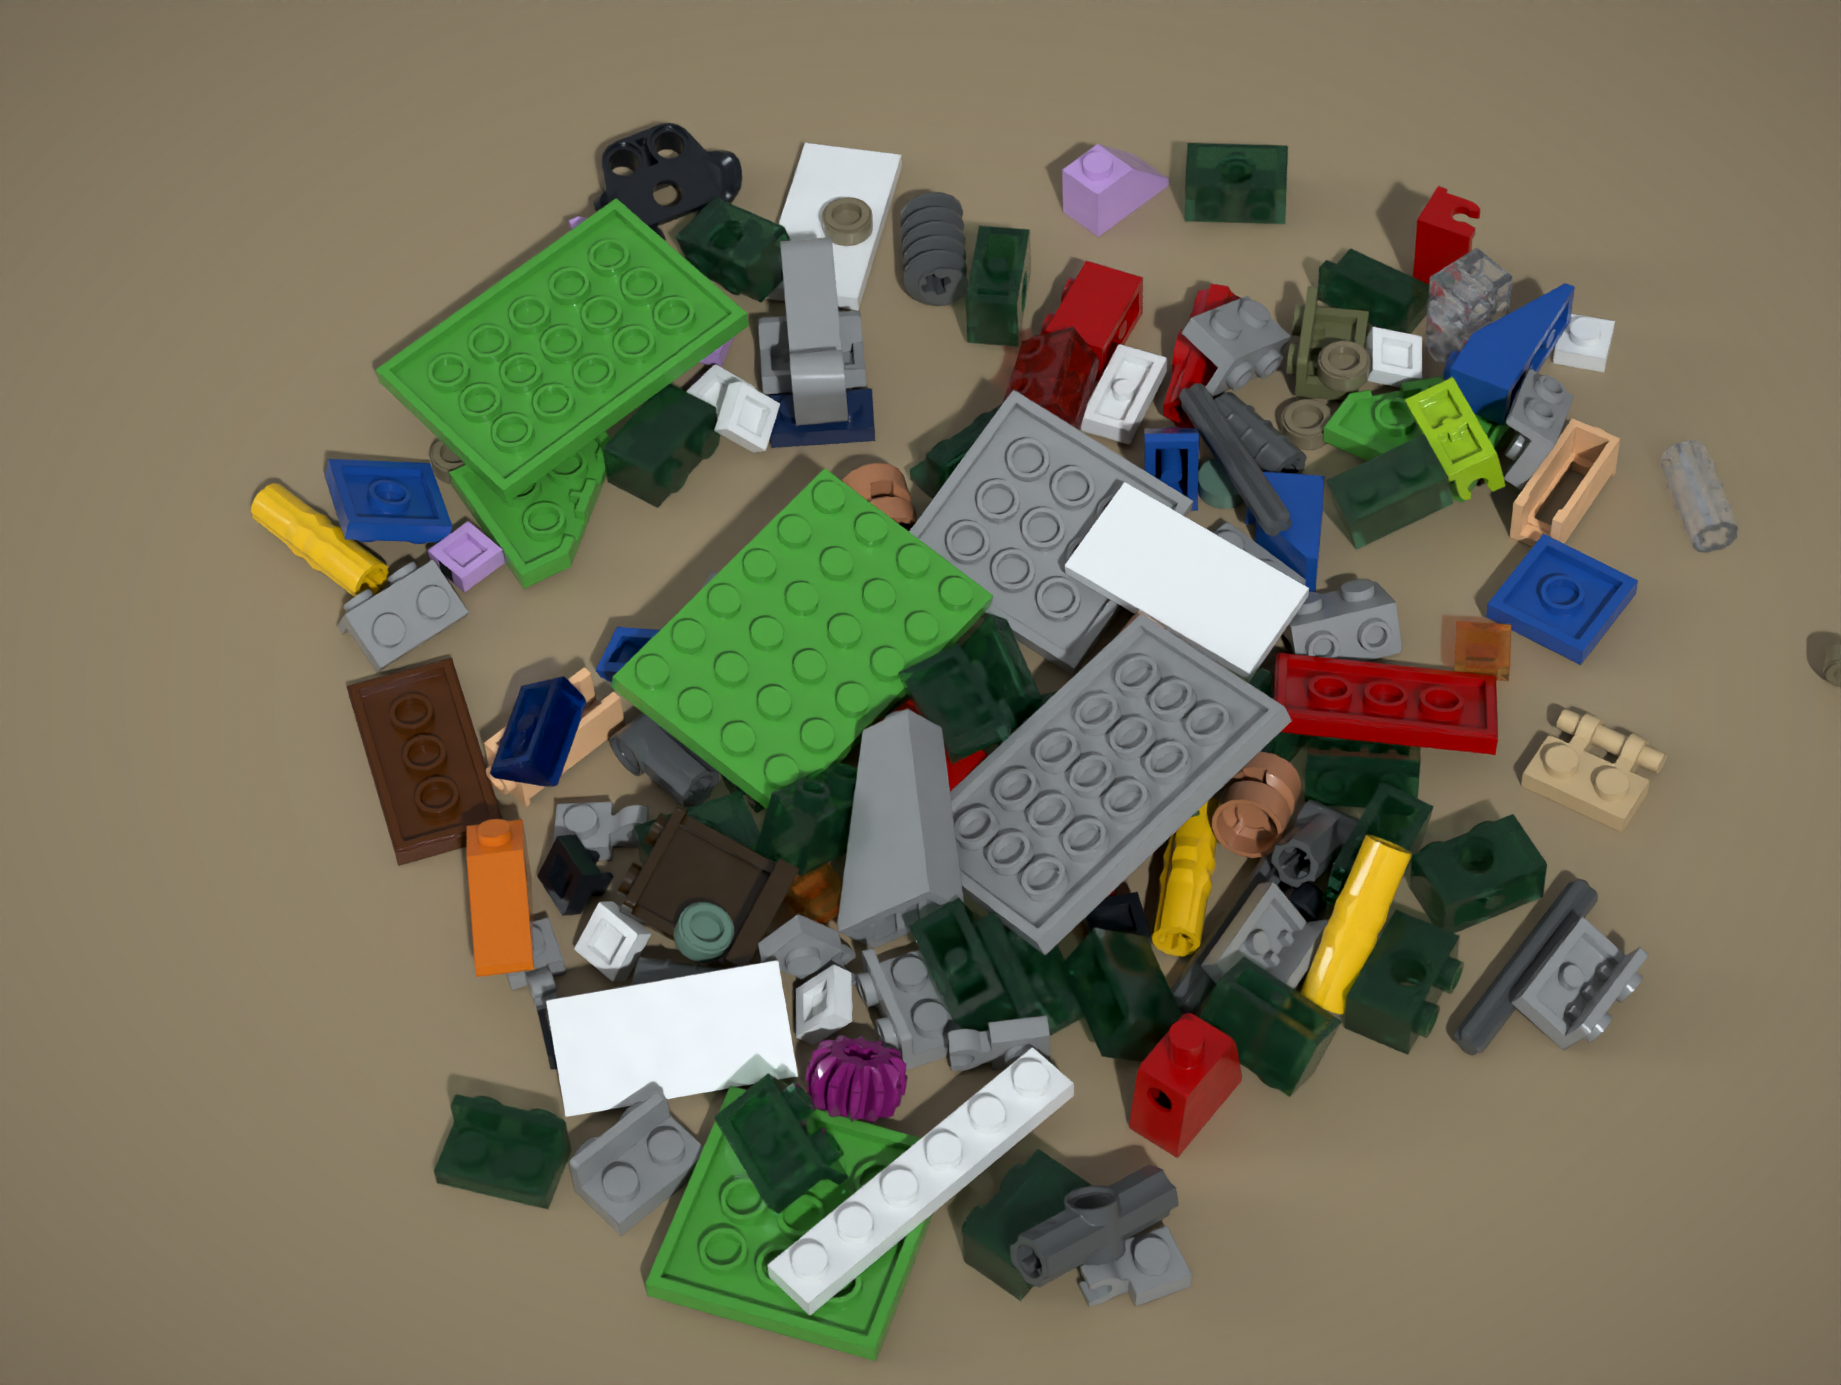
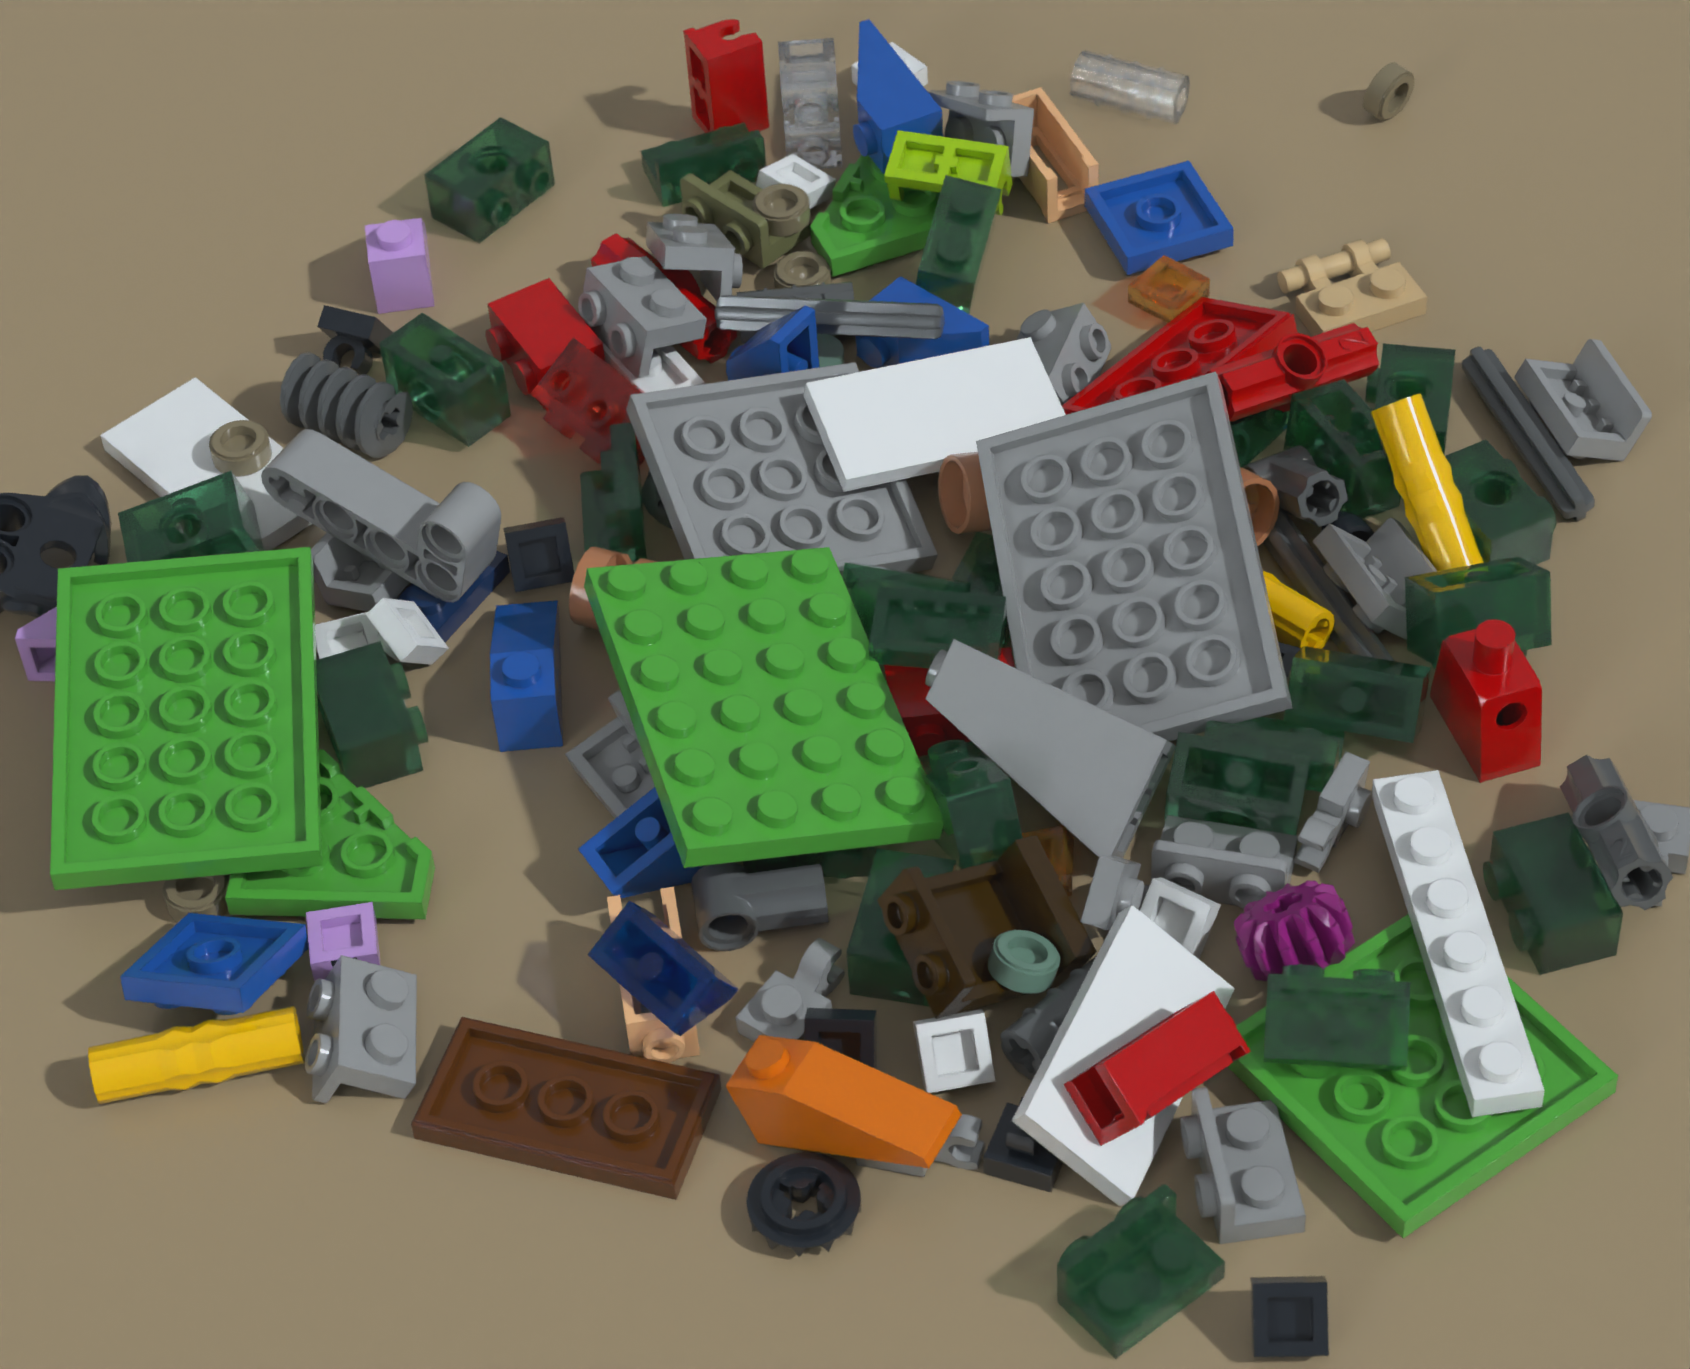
camera: 55 degrees left, 5 degrees down
(414, 922) = (798, 1179): none -> black gear
(520, 1258) = (1289, 1316): none -> black plate
(658, 1059) = (1157, 1068): none -> red window
(755, 496) = (526, 676): none -> blue slope
(884, 440) = (539, 554): none -> black tile
(1010, 208) = (352, 332): none -> black tile
(1148, 347) = (637, 310): none -> light grey bracket
(1373, 755) = (1296, 366): none -> red piece

